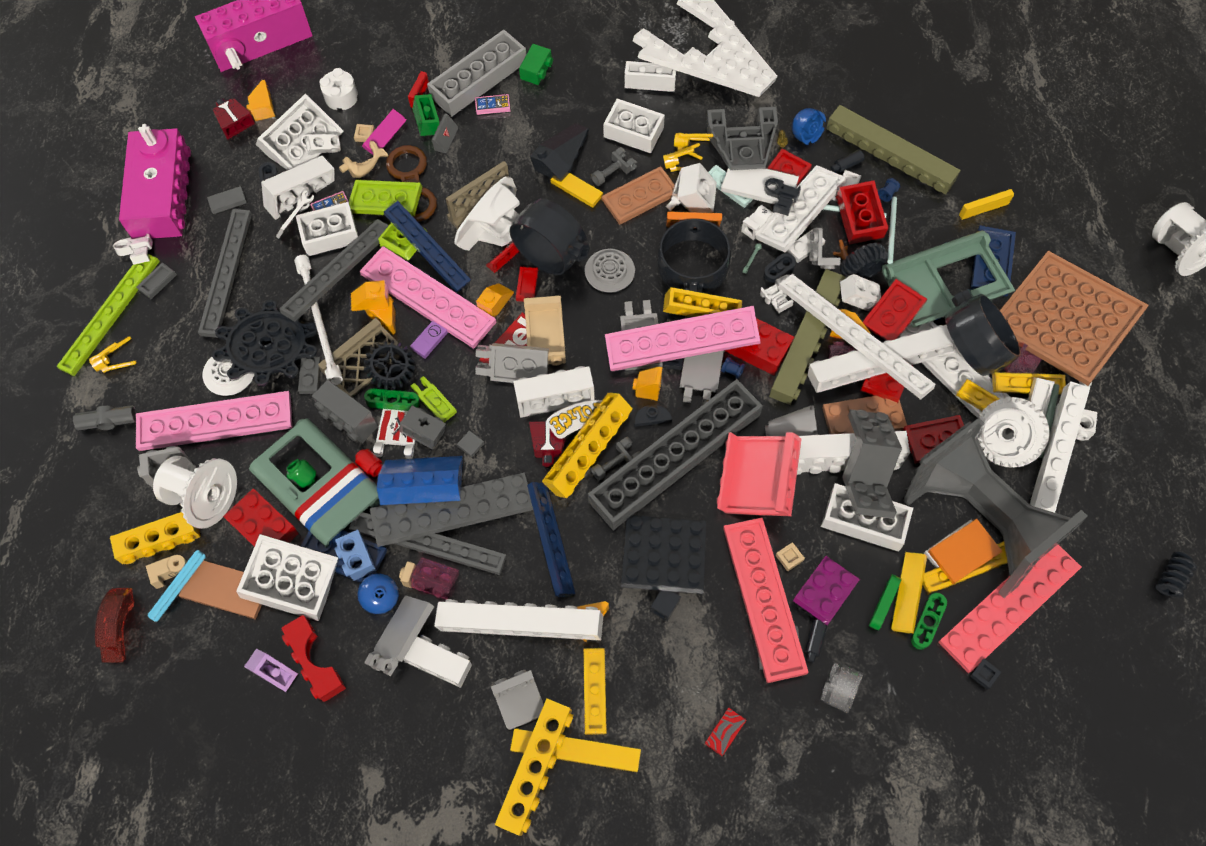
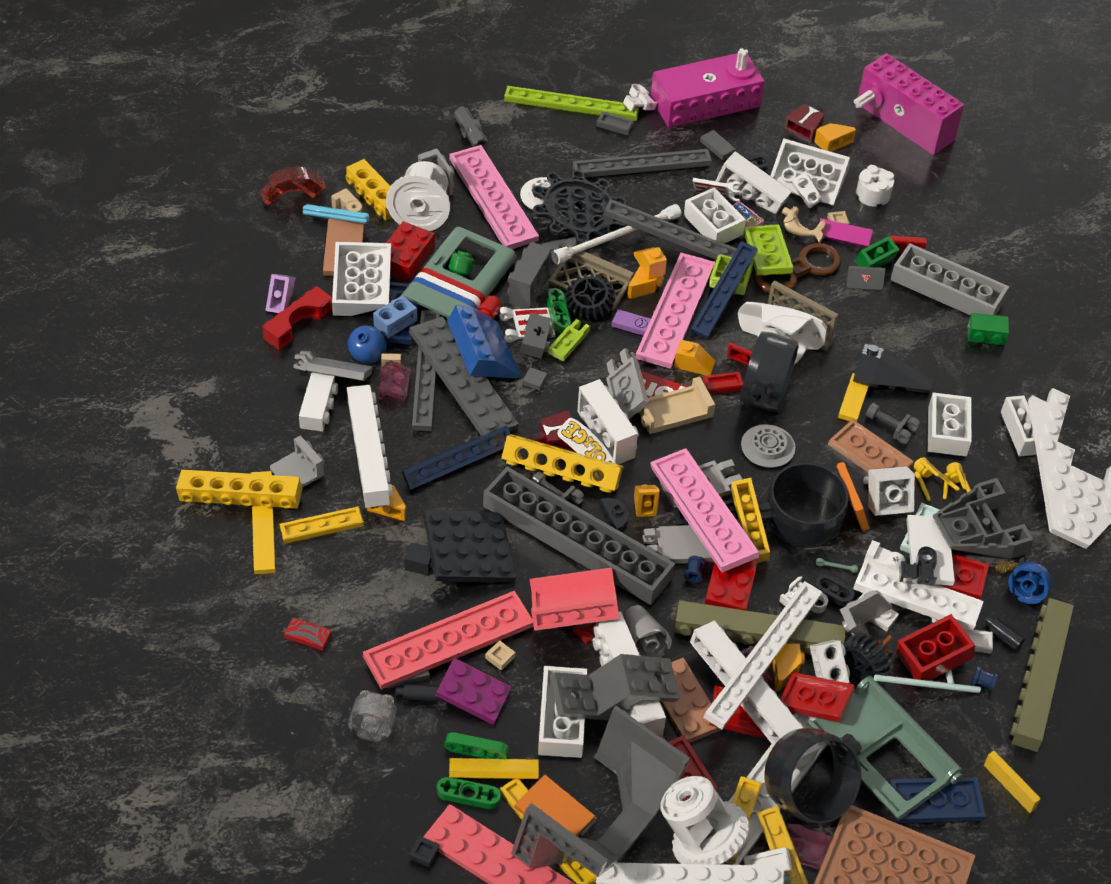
camera: 70 degrees right, 15 degrees down
(101, 360) = (523, 110): yellow plant -> none
(492, 104) = (922, 308): tile -> none

